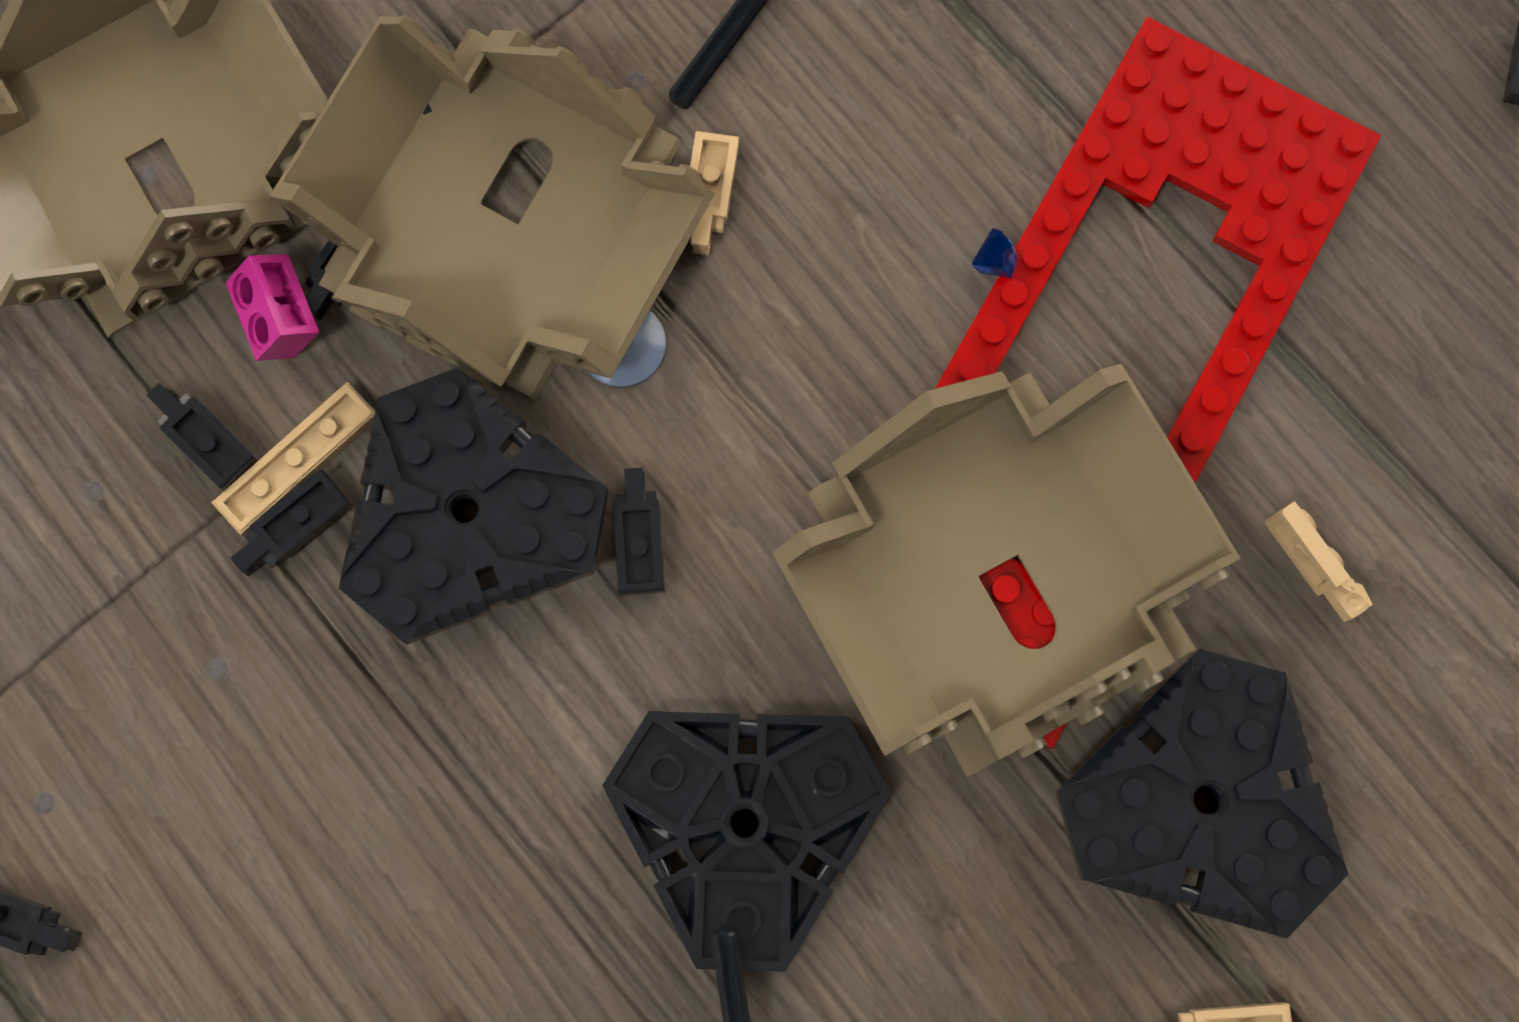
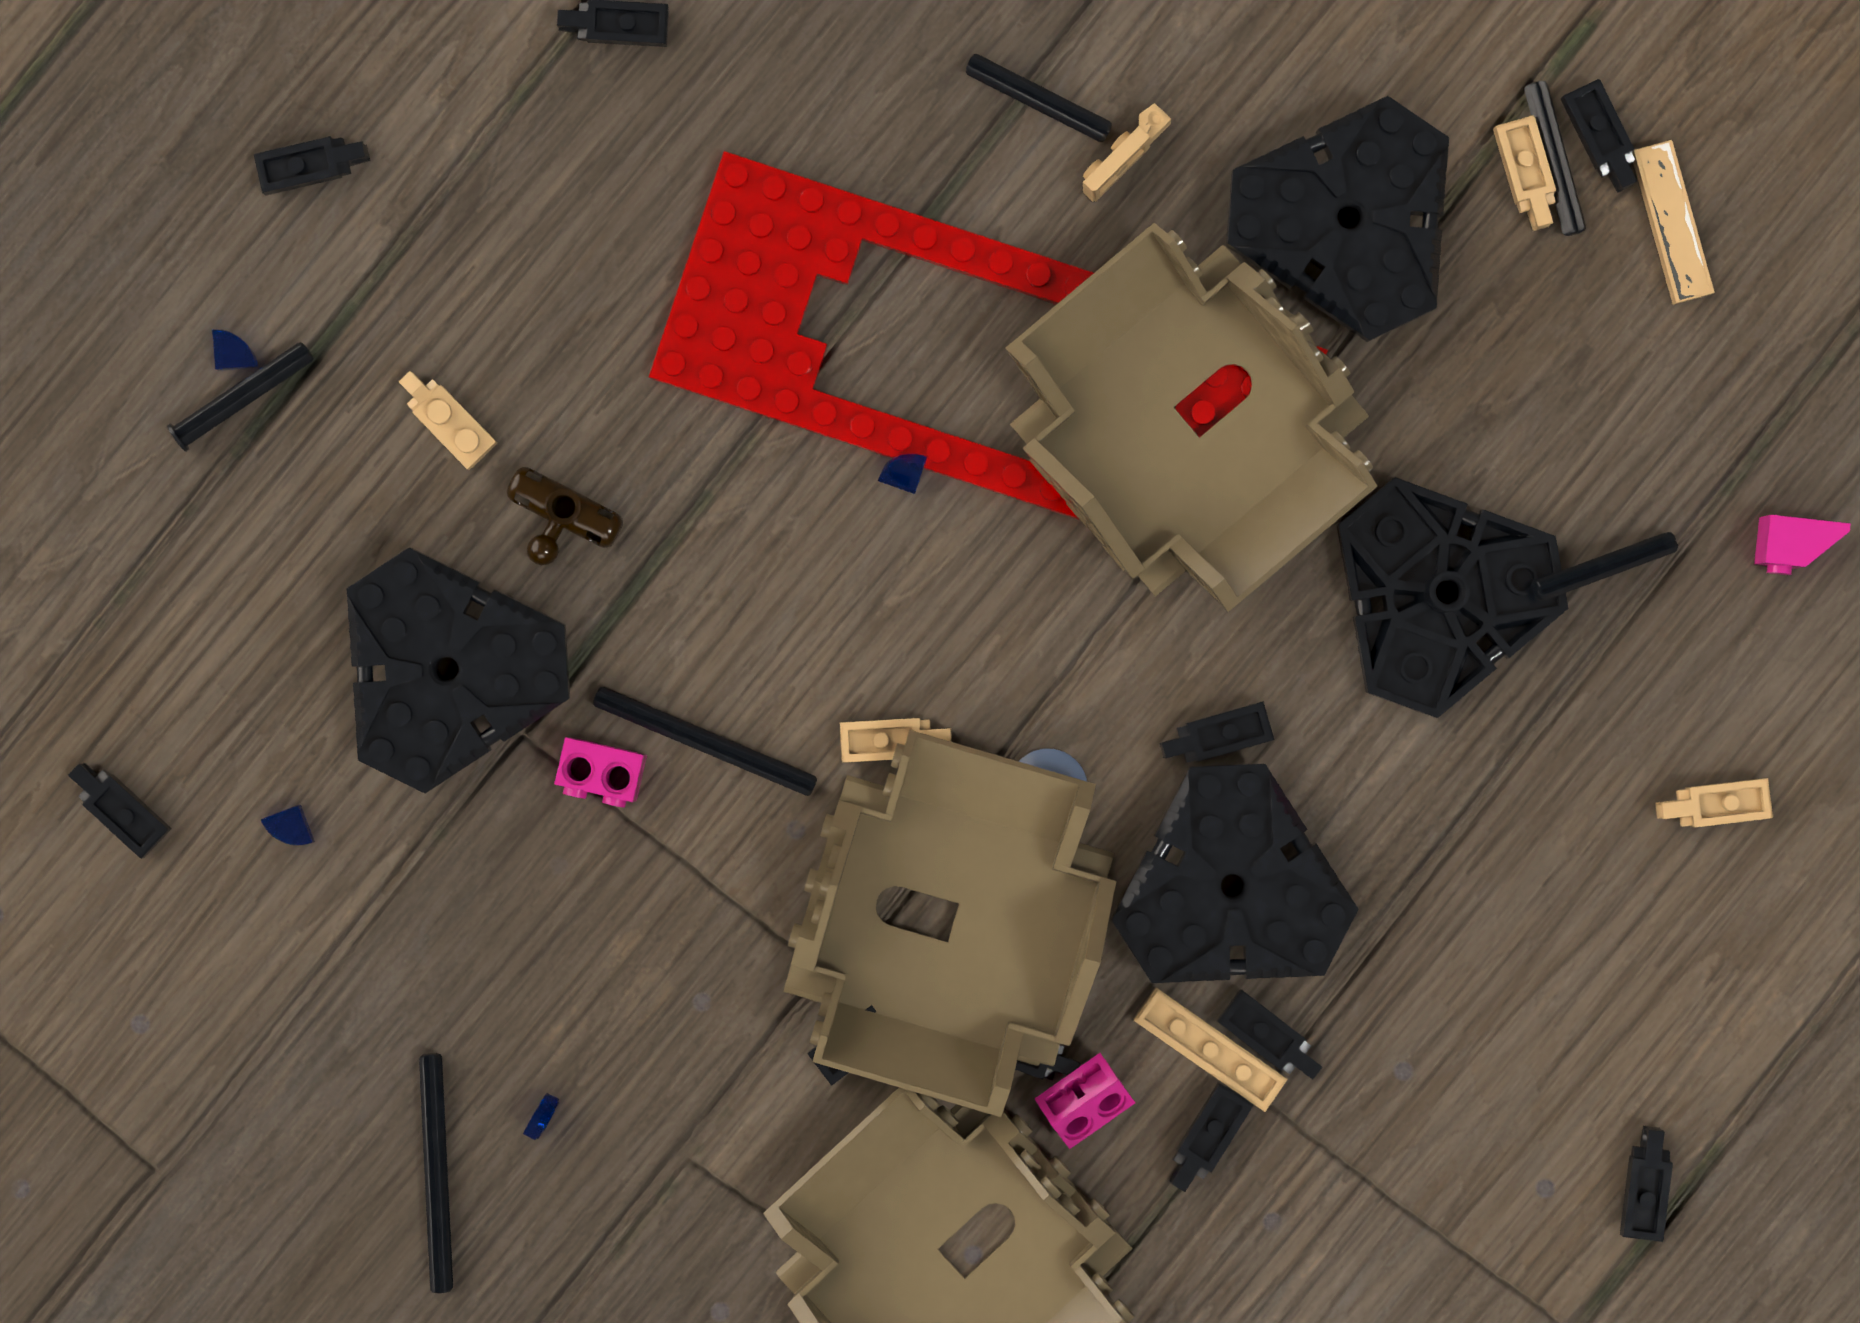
camera: 105 degrees left, 10 degrees up
(1393, 481) = (1038, 98): none -> black axle

